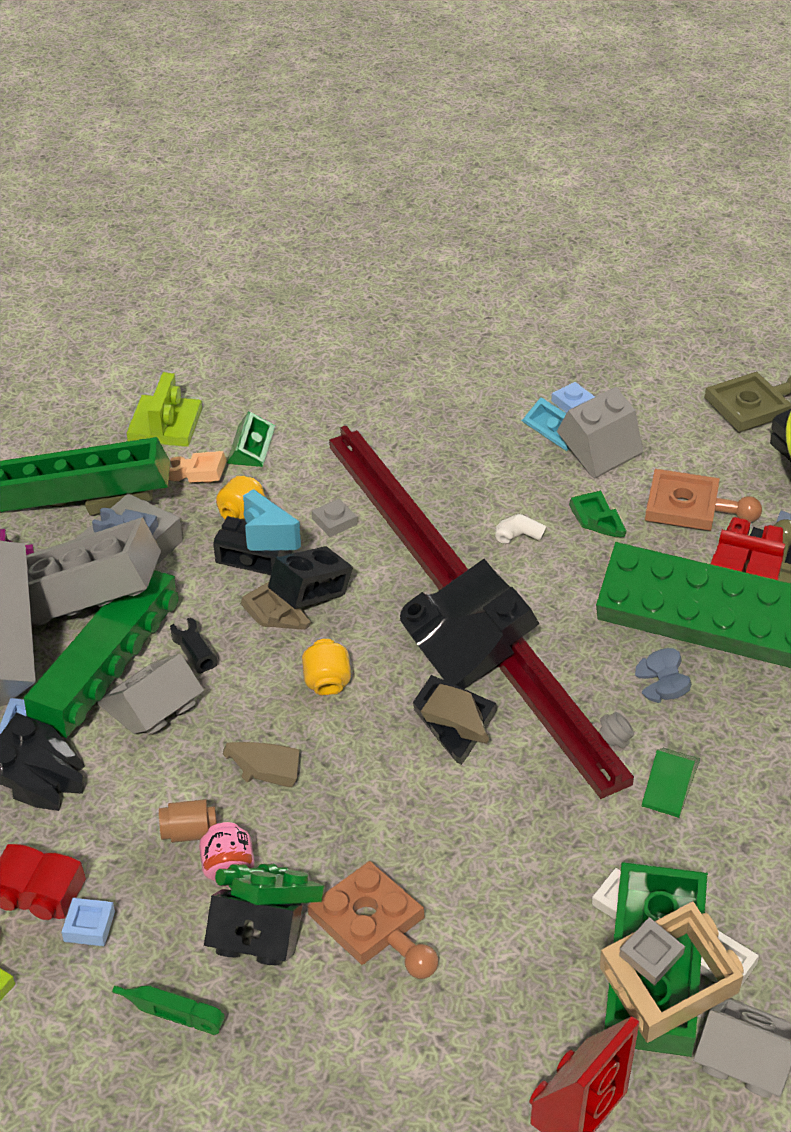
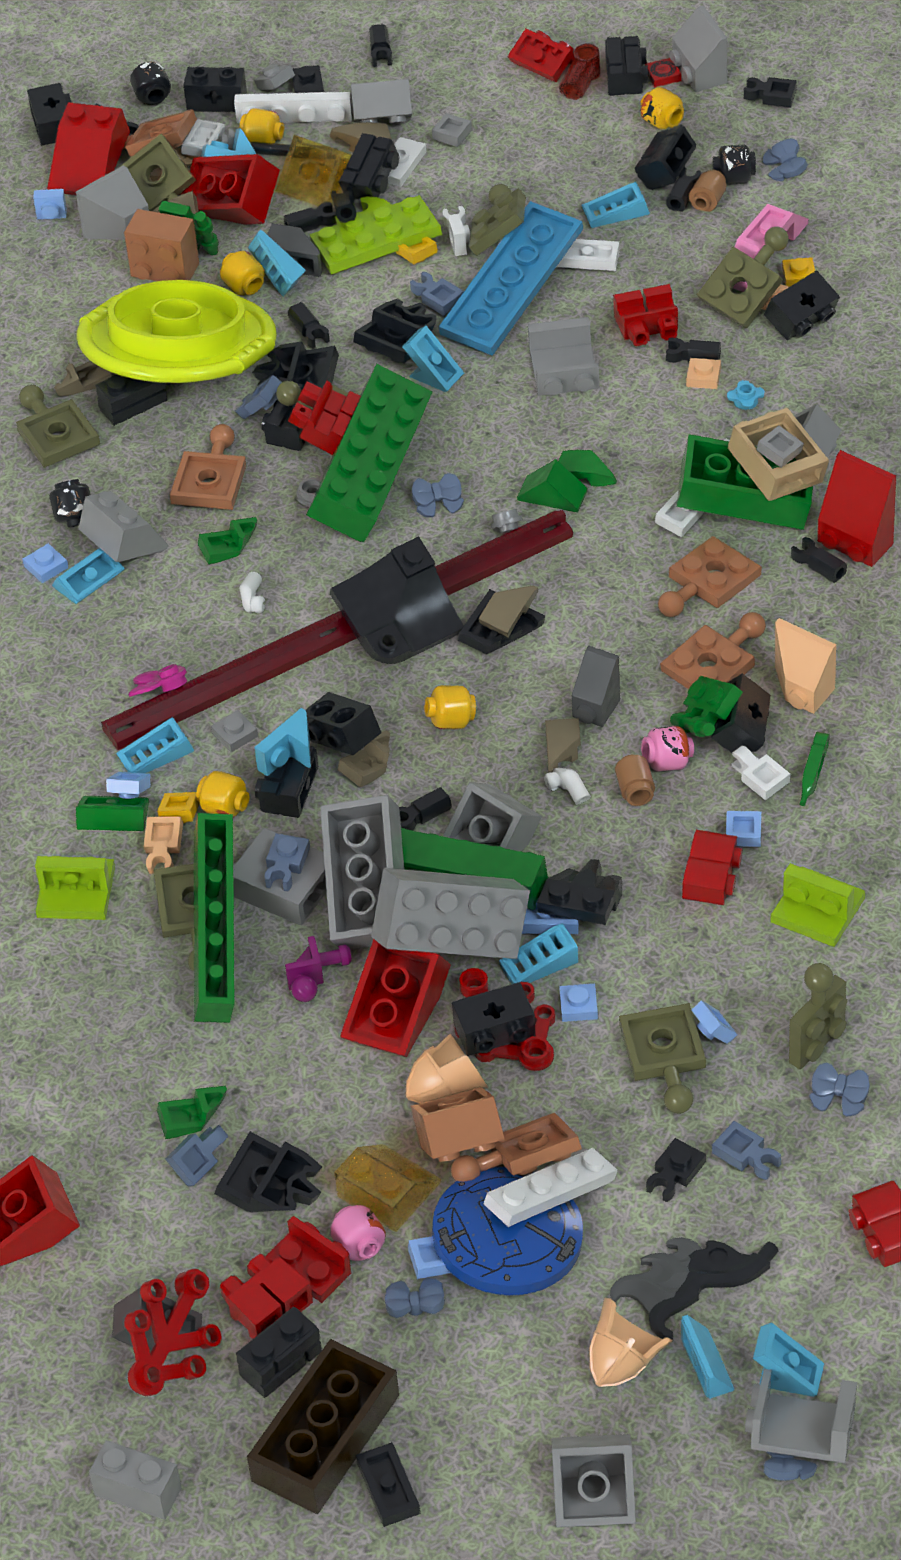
camera: 90 degrees left, 5 degrees up
(170, 948) = (761, 774): none -> white plate
(208, 761) = (568, 780): none -> white arm
(235, 468) = (179, 805): none -> yellow plate
(274, 444) = (128, 784): none -> light blue plate
(320, 996) = (804, 666): none -> light nougat slope
(321, 787) = (596, 687): none -> dark grey slope
(323, 472) = (157, 736): none -> medium azure slope
(400, 462) = (167, 677): none -> dark pink plate
(517, 908) = (713, 587): none -> nougat plate
(535, 1053) = (819, 560): none -> black bar
(646, 401) = (68, 501): none -> black head
(710, 810) = (587, 465): none -> green slope

